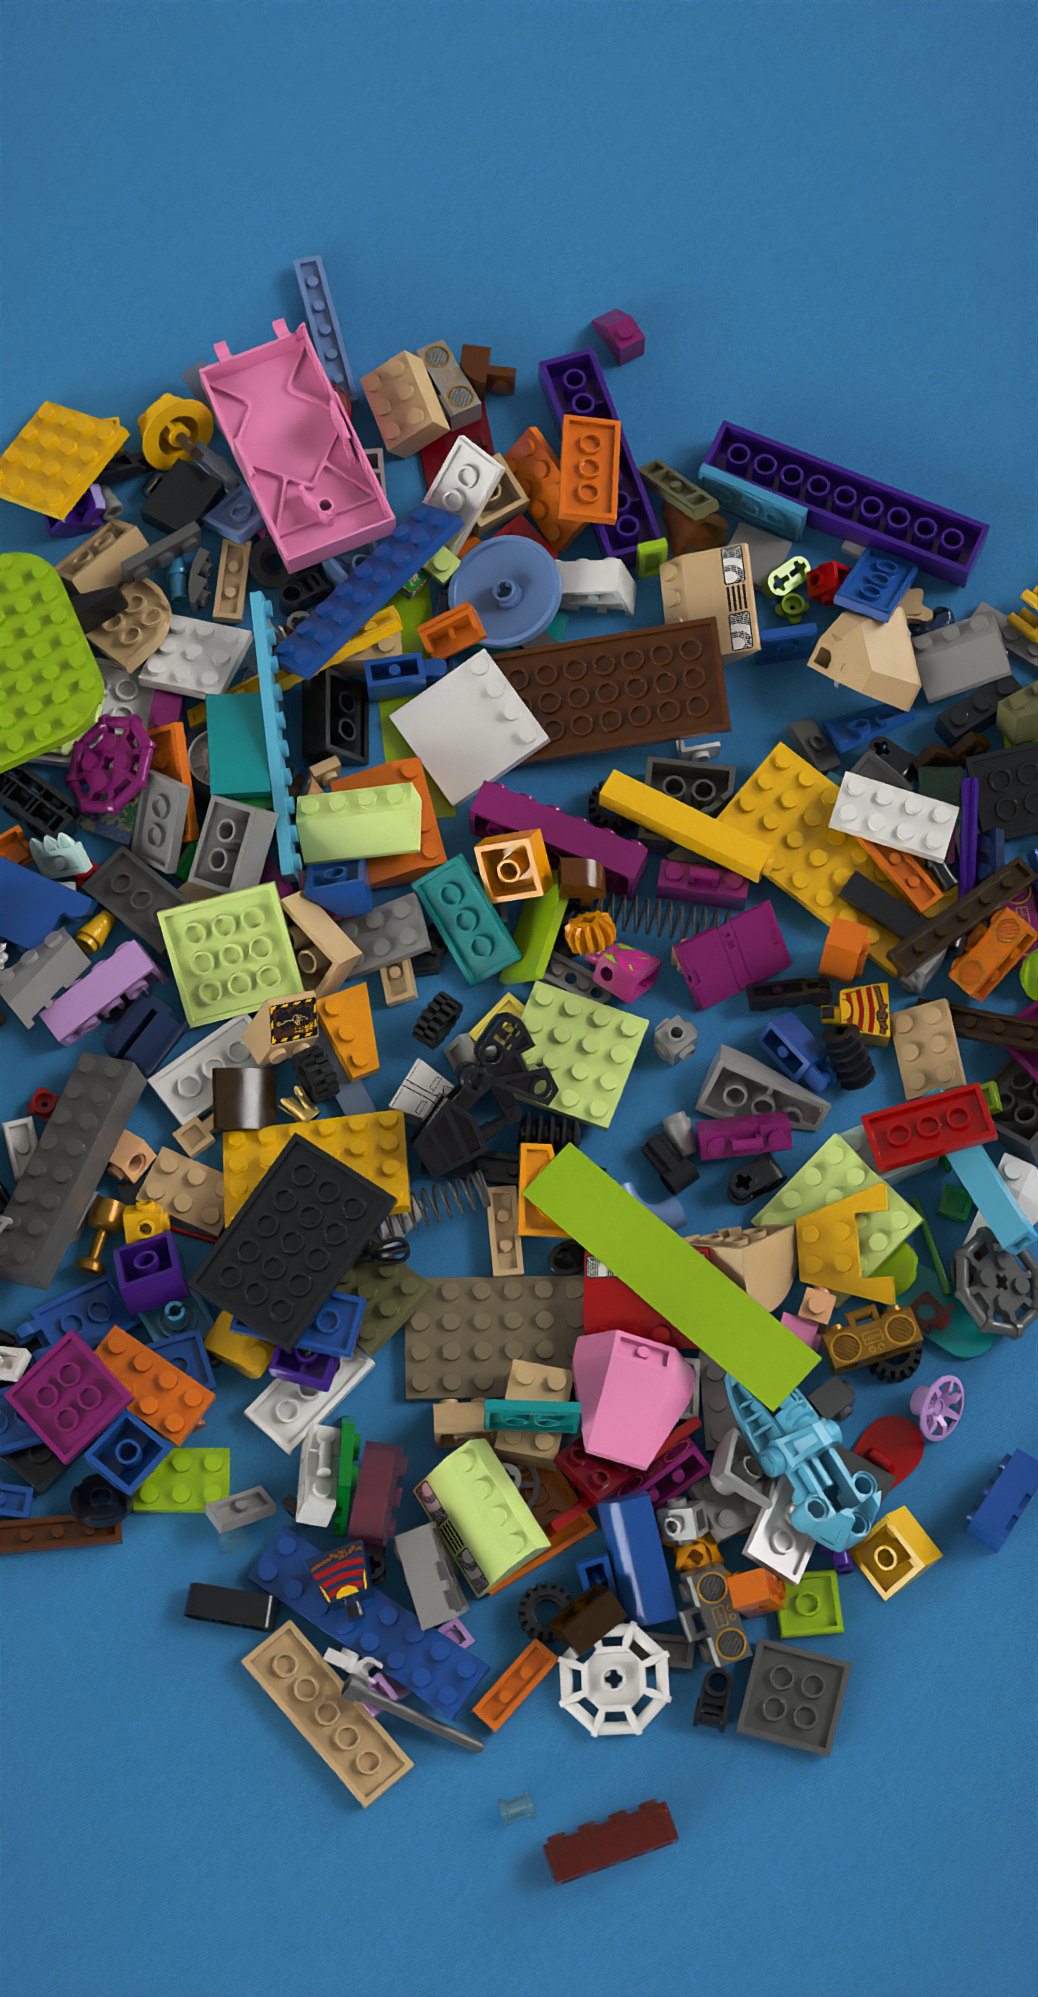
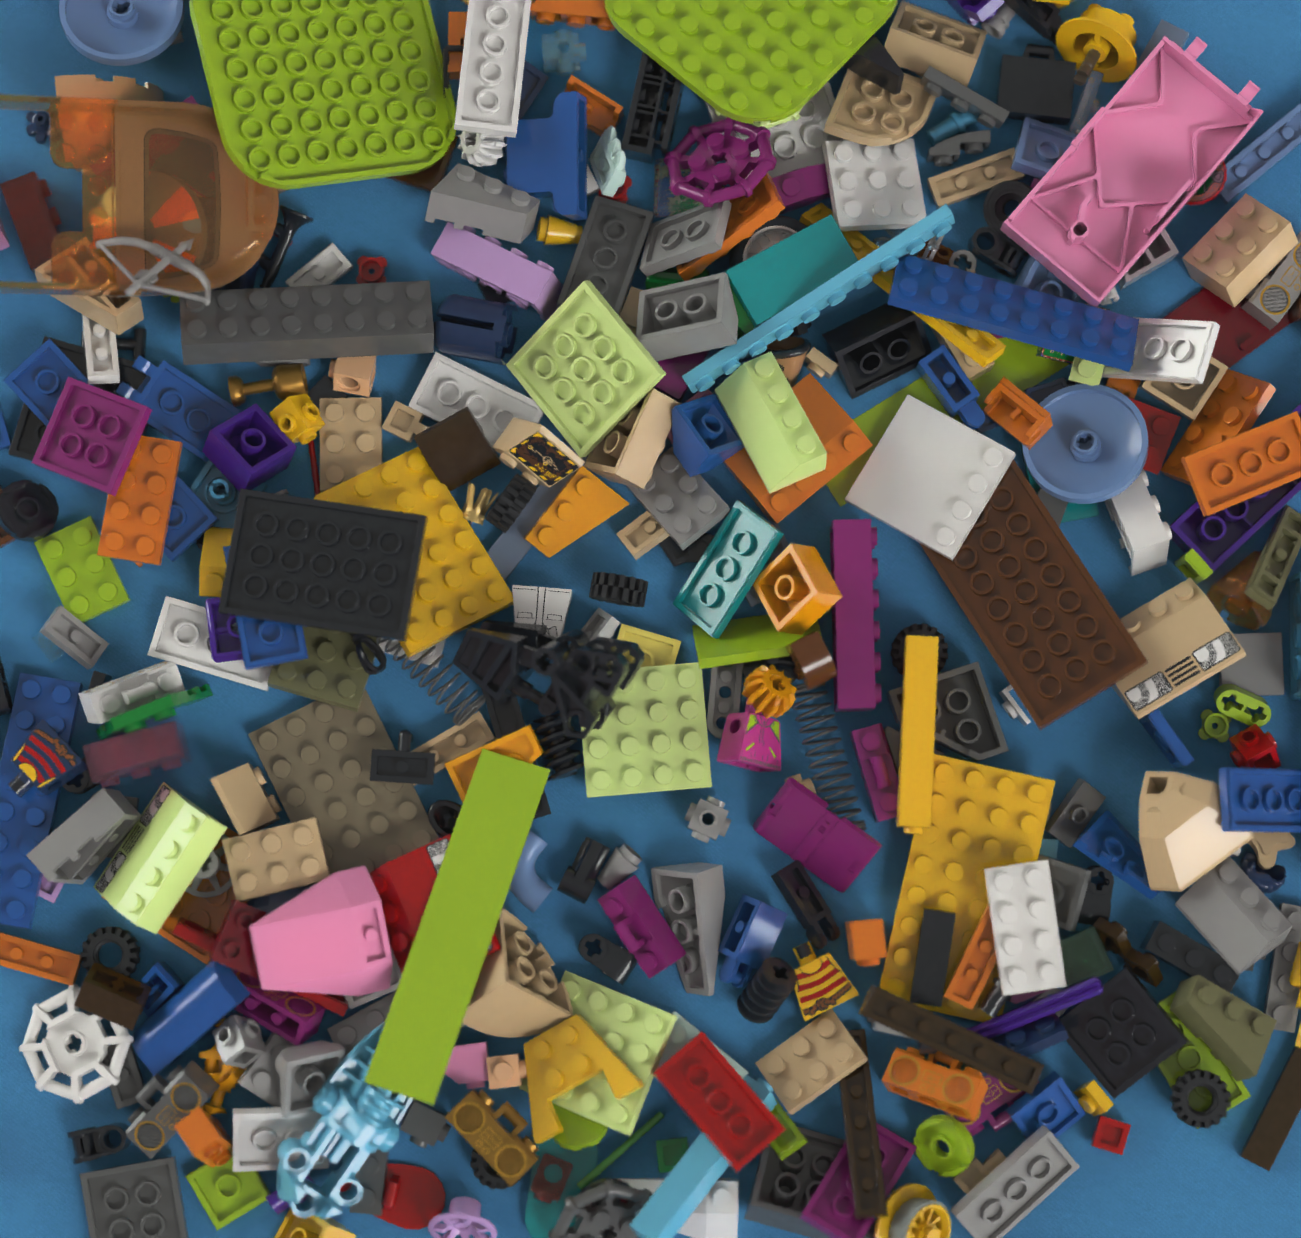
camera: 65 degrees right, 15 degrees up
(127, 1453) = (69, 514): blue slope -> none
(501, 1270) = (403, 765): none -> black plate
(532, 1416) = (253, 862): teal tile -> none

